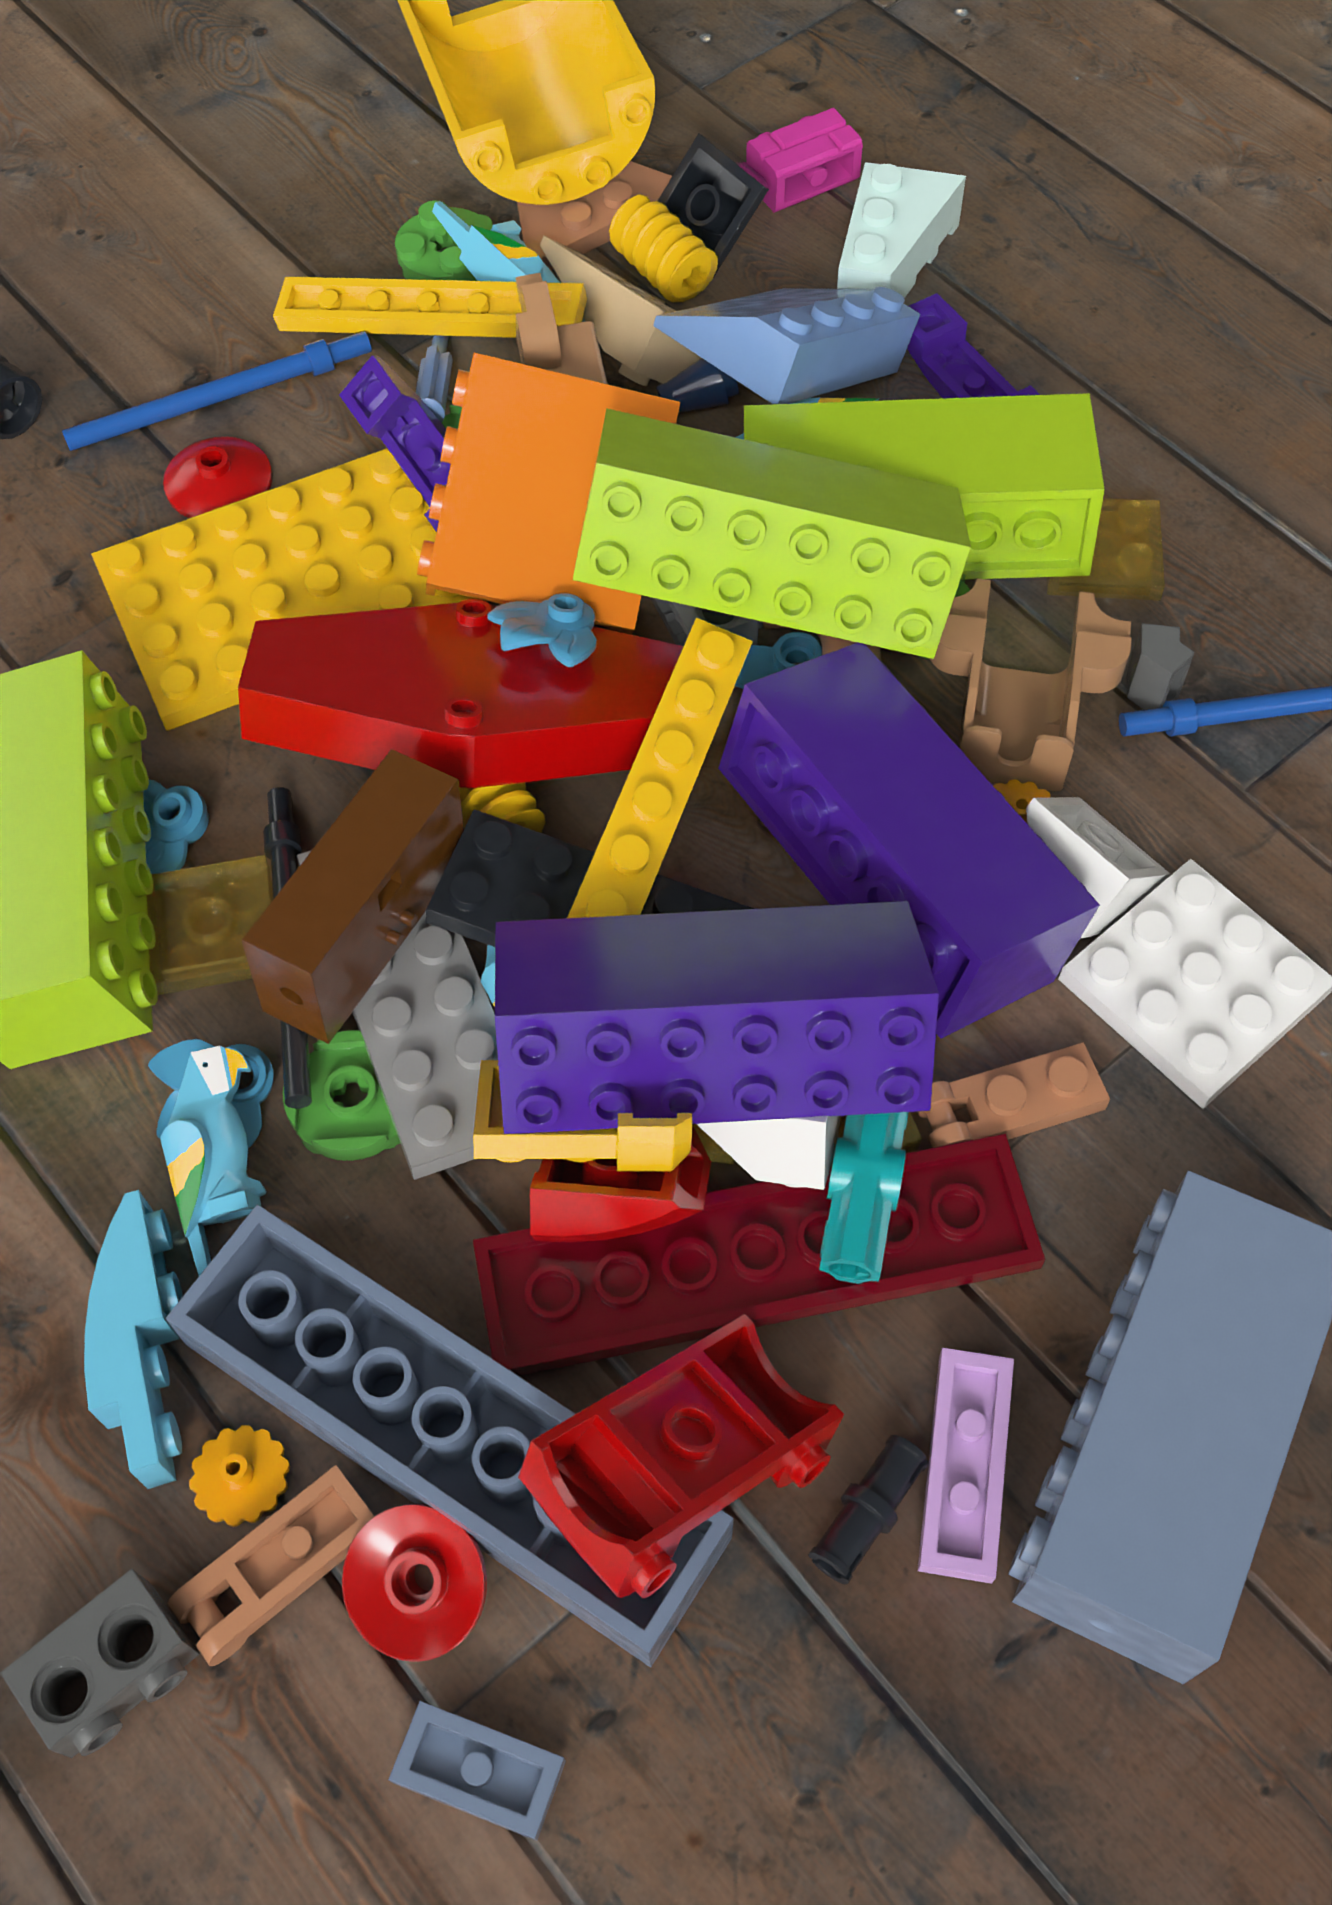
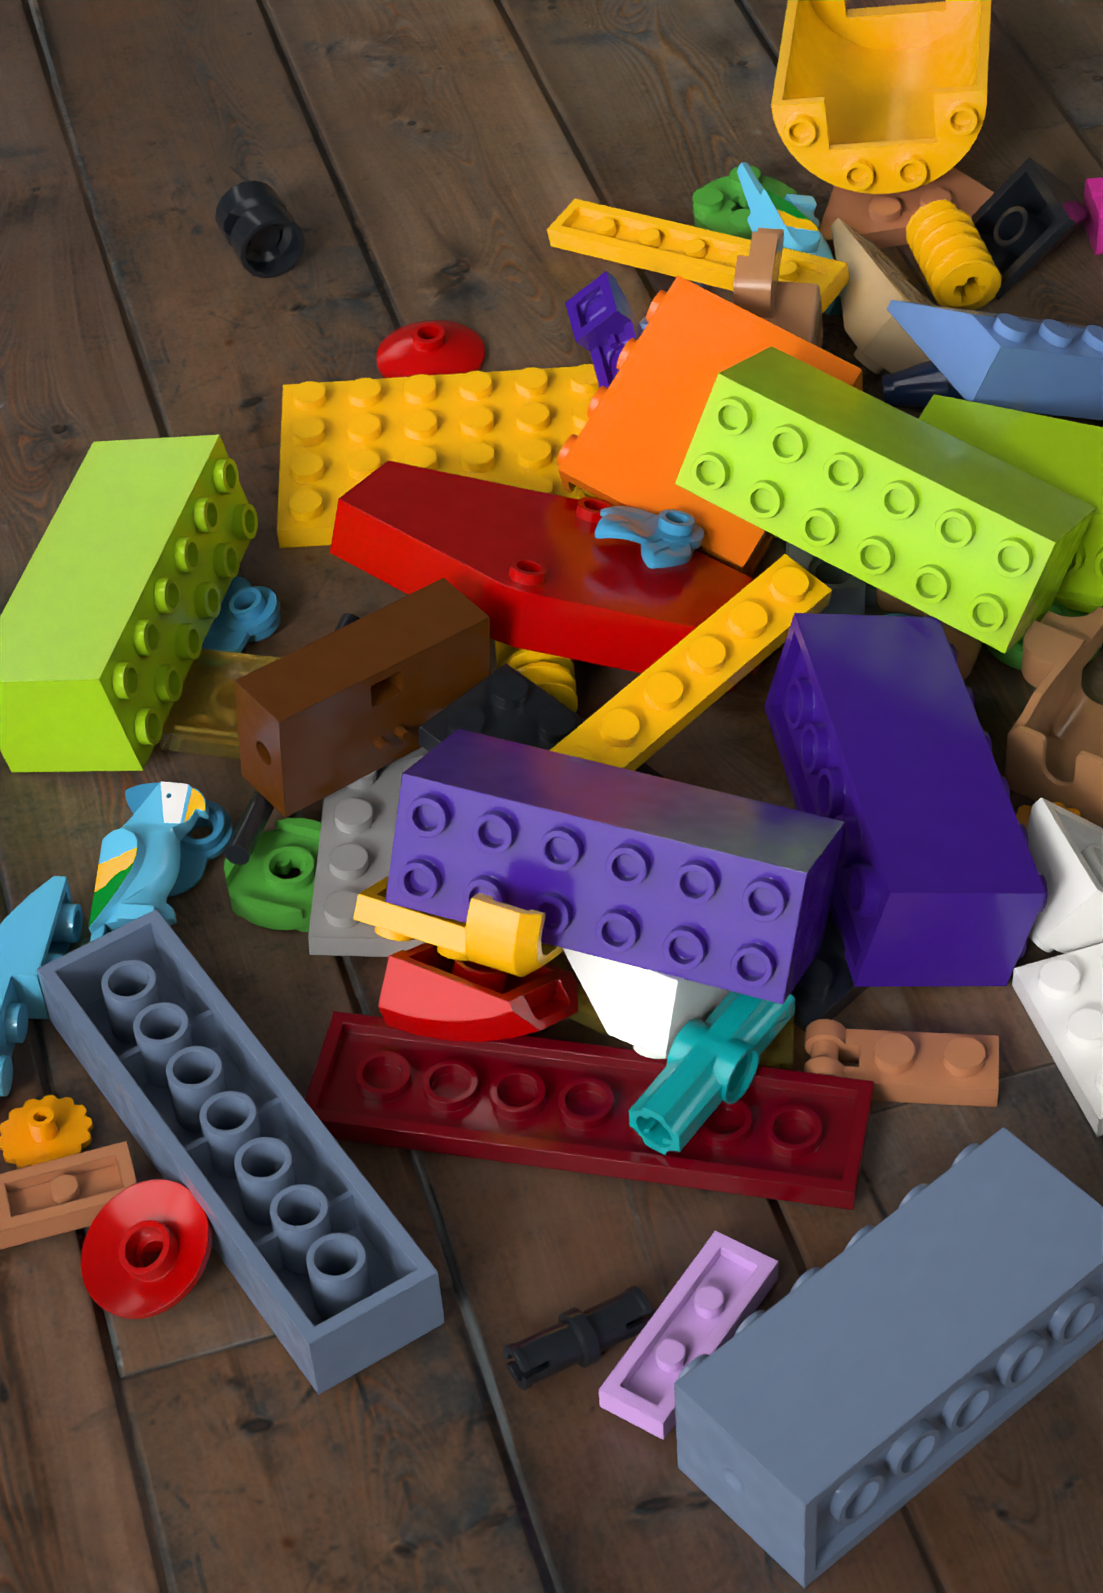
camera: 25 degrees right, 15 degrees down
(315, 358) = (572, 275): blue bar -> none
(478, 1770) = (128, 1411): sand blue plate -> none
(673, 1453) = (408, 1192): red piece -> none

